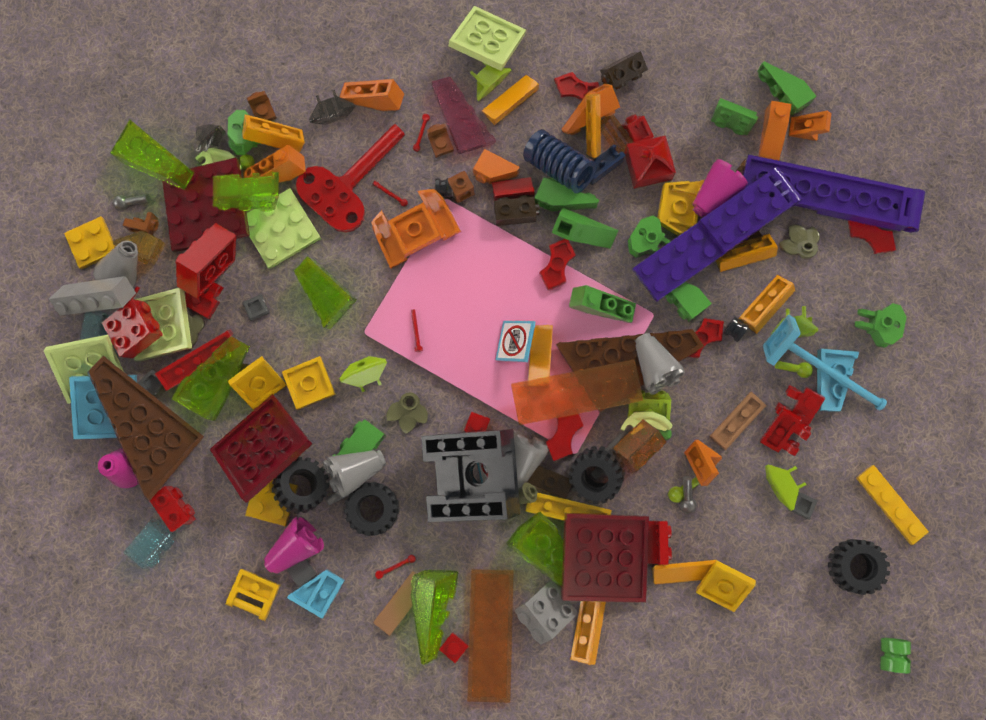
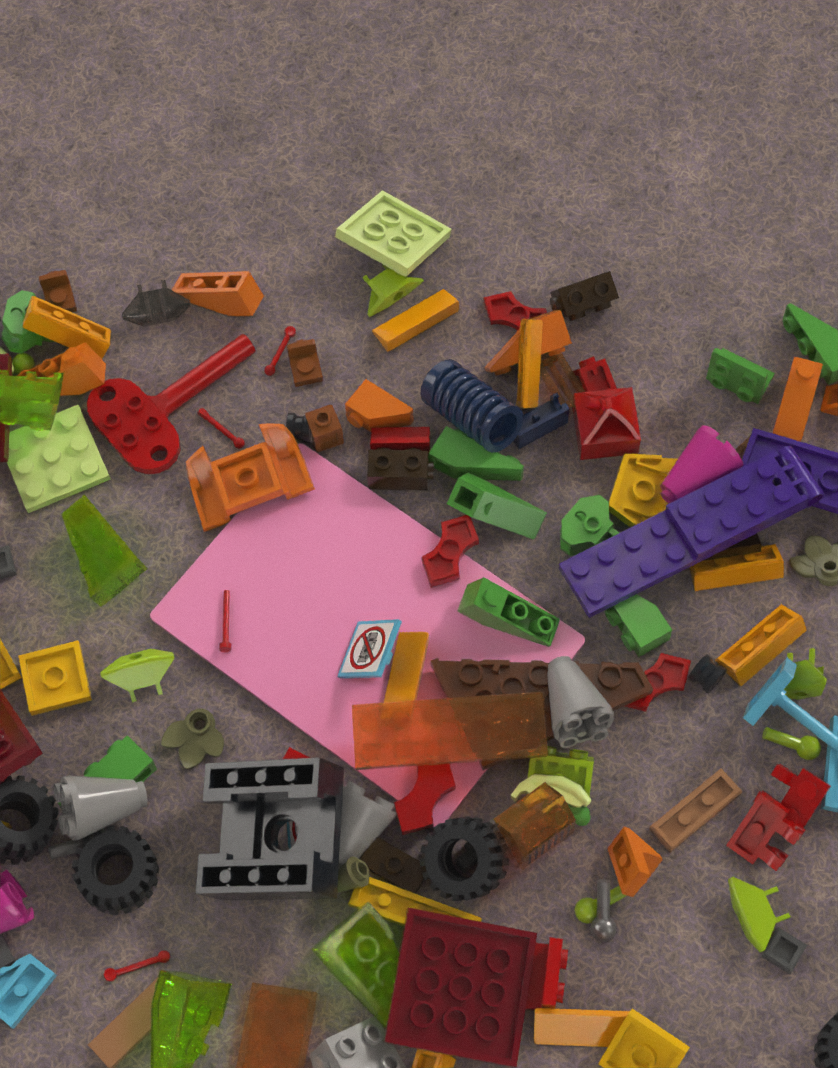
camera: 10 degrees right, 15 degrees down
(462, 122) = (339, 336): clear pink wing -> none

